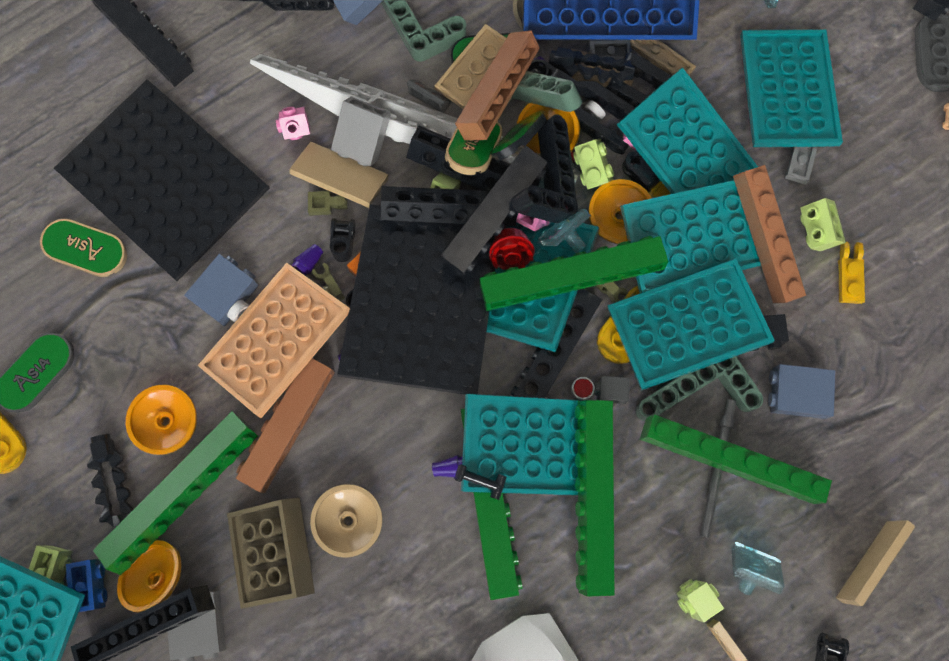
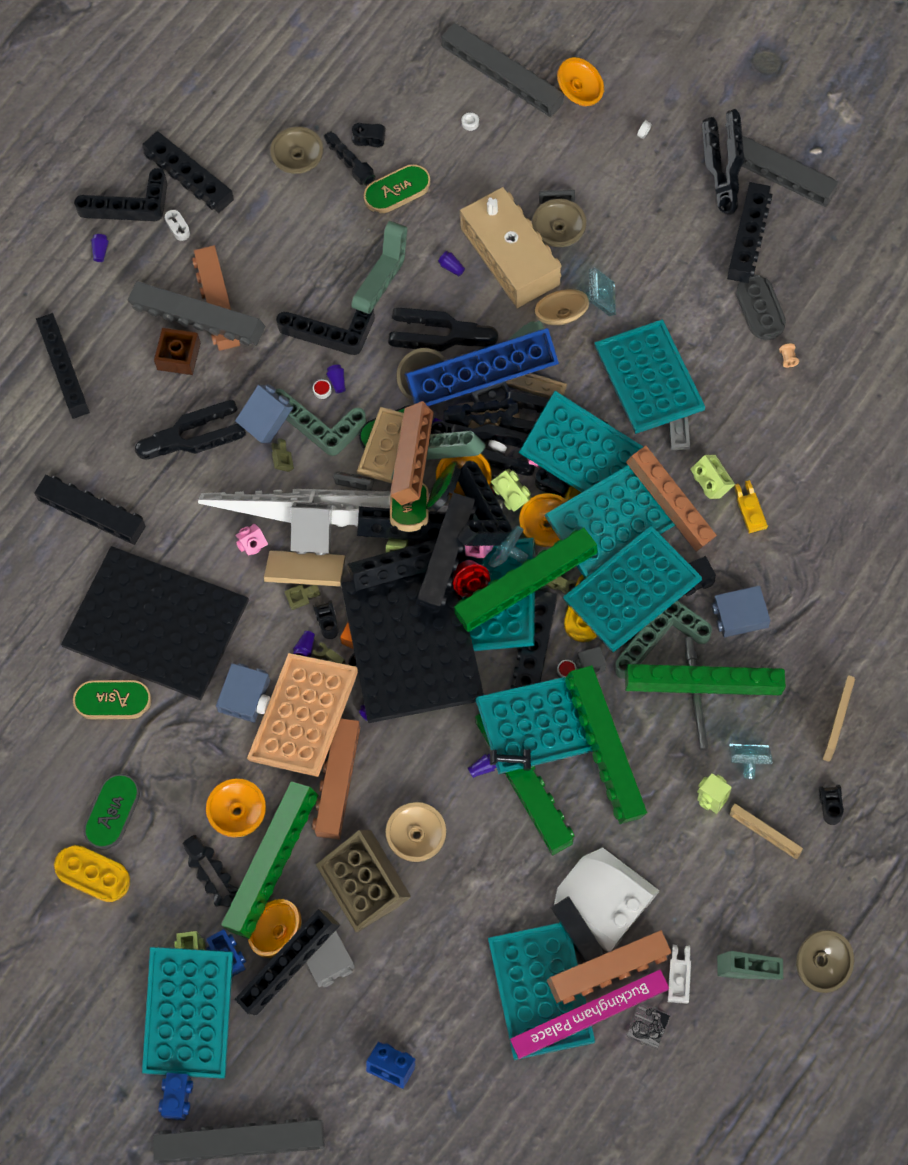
camera: 15 degrees left, 10 degrees down
(360, 44) = (281, 458): none -> olive plate

